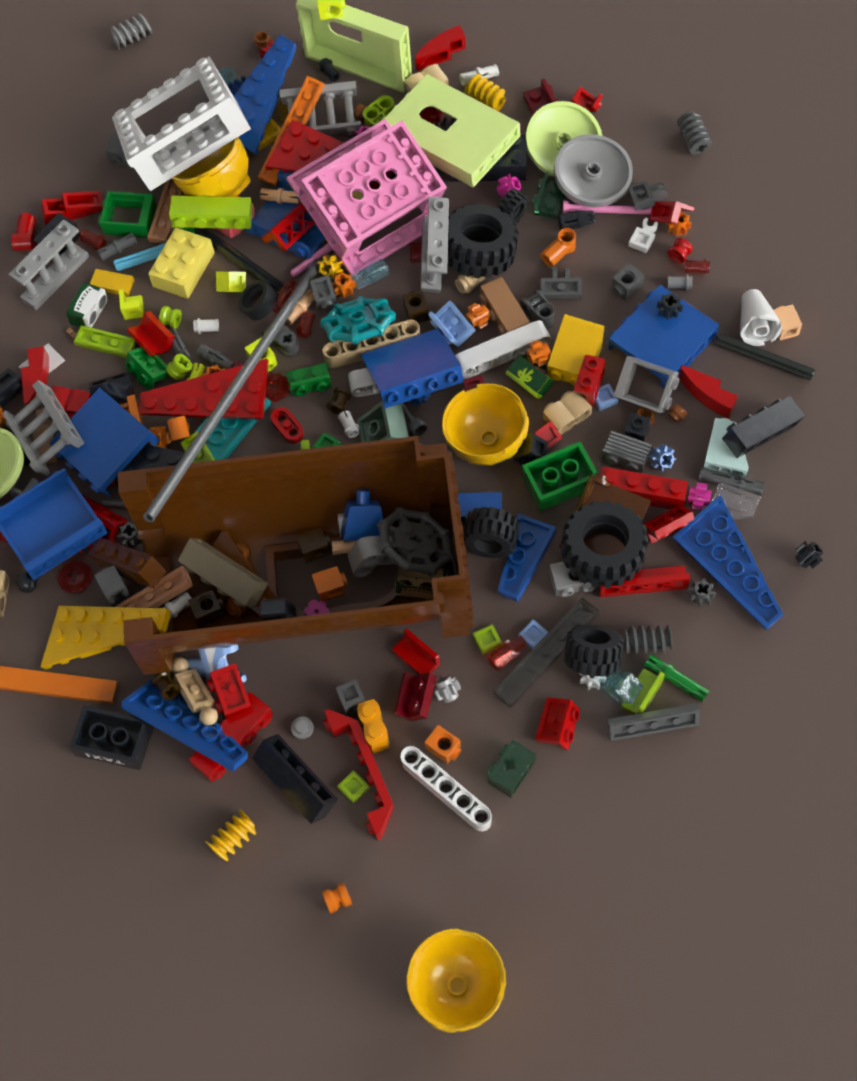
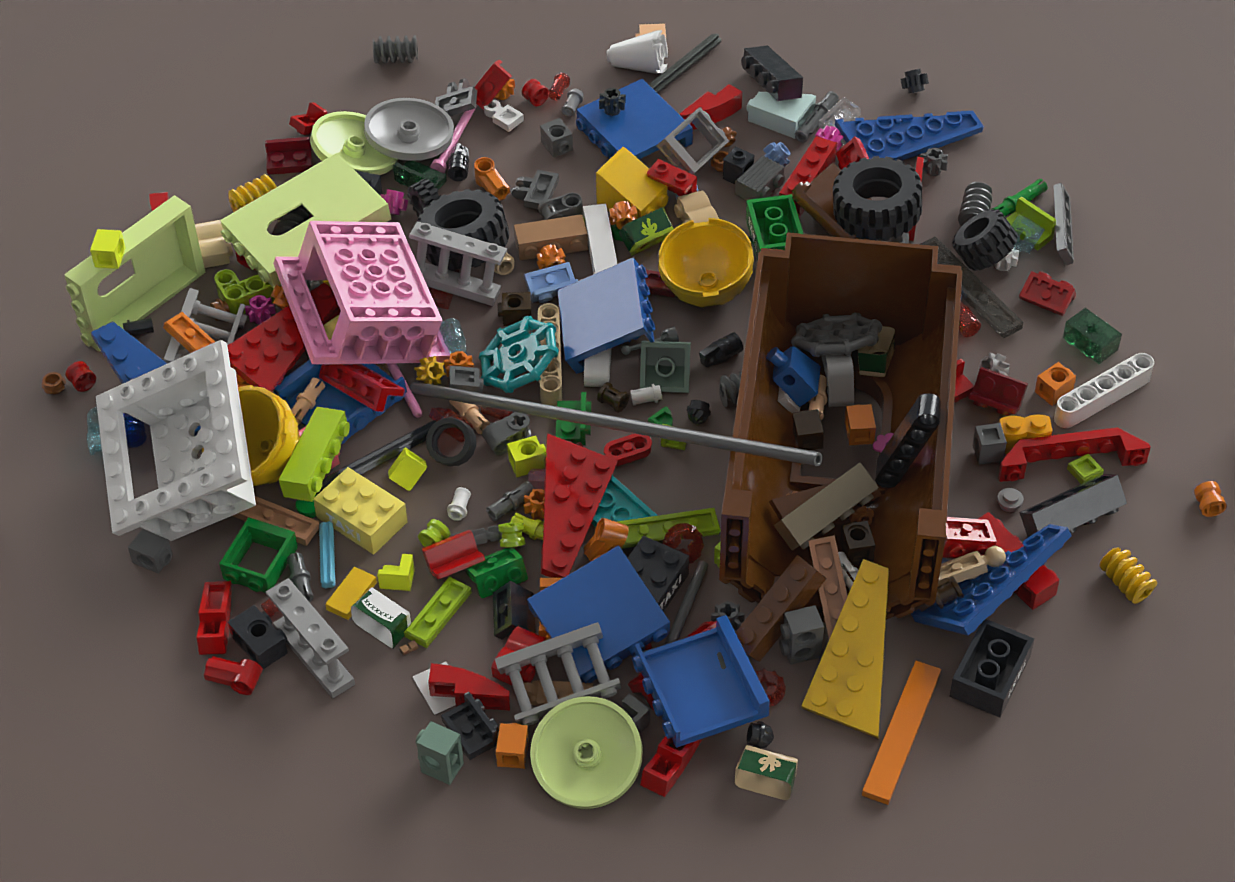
camera: 80 degrees left, 15 degrees down
(488, 72) = (221, 199): white pin -> none

